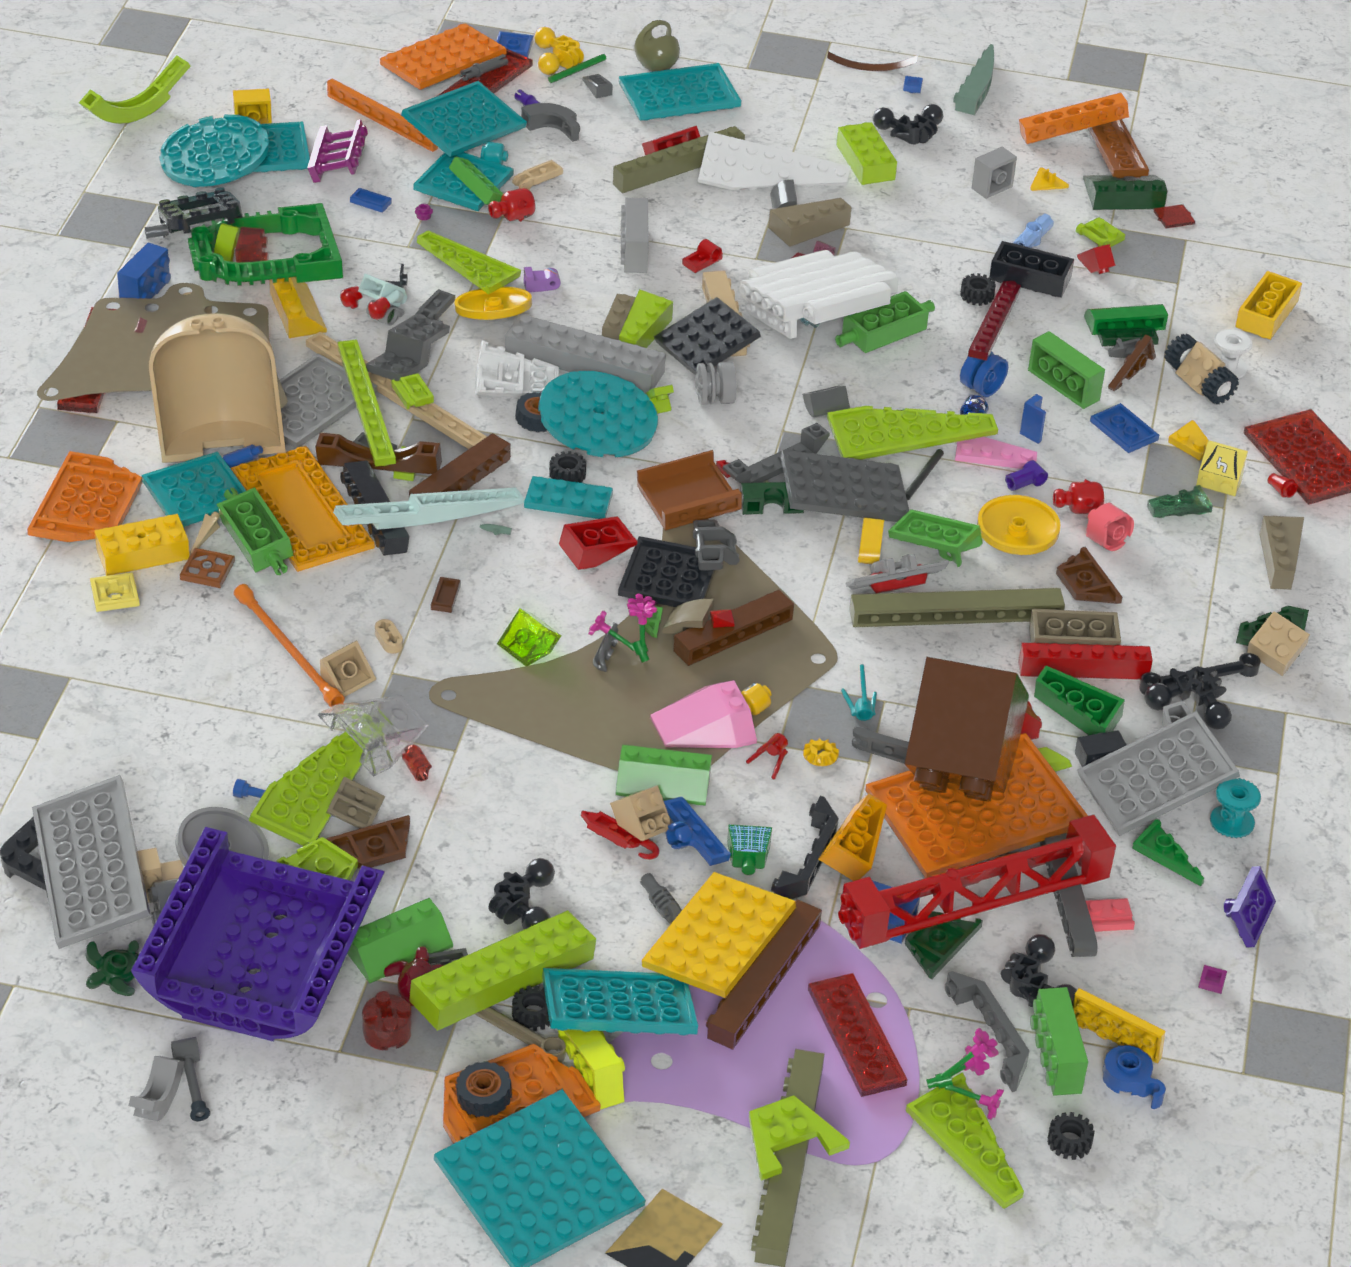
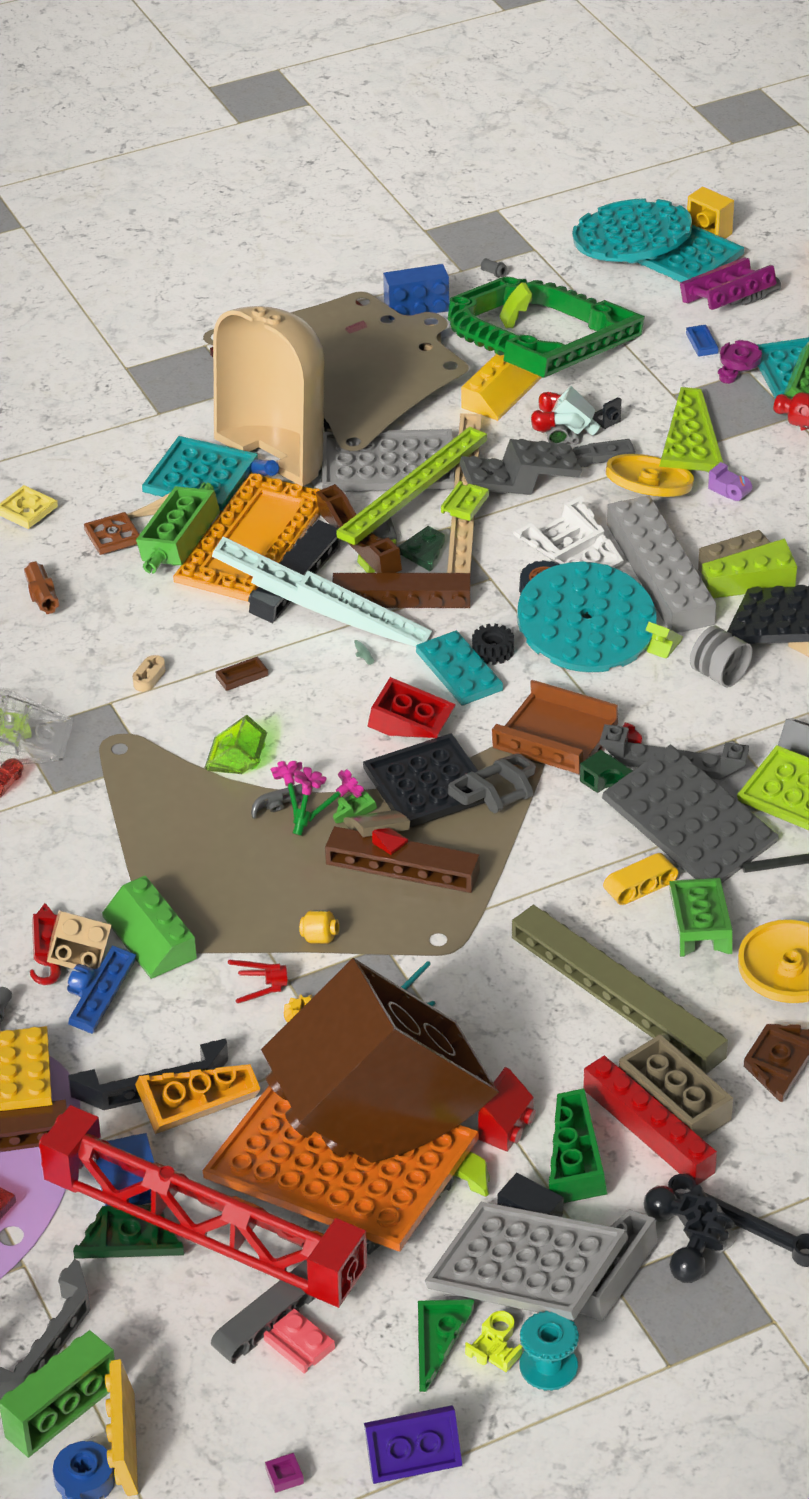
camera: 55 degrees right, 0 degrees up
(85, 498) = (117, 429): orange plate -> none
(142, 104) = (627, 166): lime arch -> none
(142, 544) = (94, 484): yellow brick -> none
(221, 202) = (524, 260): black plate -> none
(227, 634) = (41, 587): none -> dark orange piece
(251, 245) = (523, 316): clear red slope -> none
(330, 694) = (36, 683): orange hose -> none
(347, 669) = (71, 673): tan slope -> none
(421, 193) = (740, 355): none -> magenta tile
(421, 432) = (423, 547): none -> clear green wing
(707, 719) = (259, 913): bright pink wedge -> none
(749, 847) = (115, 1035): green torso -> none
(886, 572) = (625, 923): light grey piece -> none
(1039, 950) = (142, 1318): black piece -> none
(1194, 836) = (496, 1348): none -> neon yellow piece

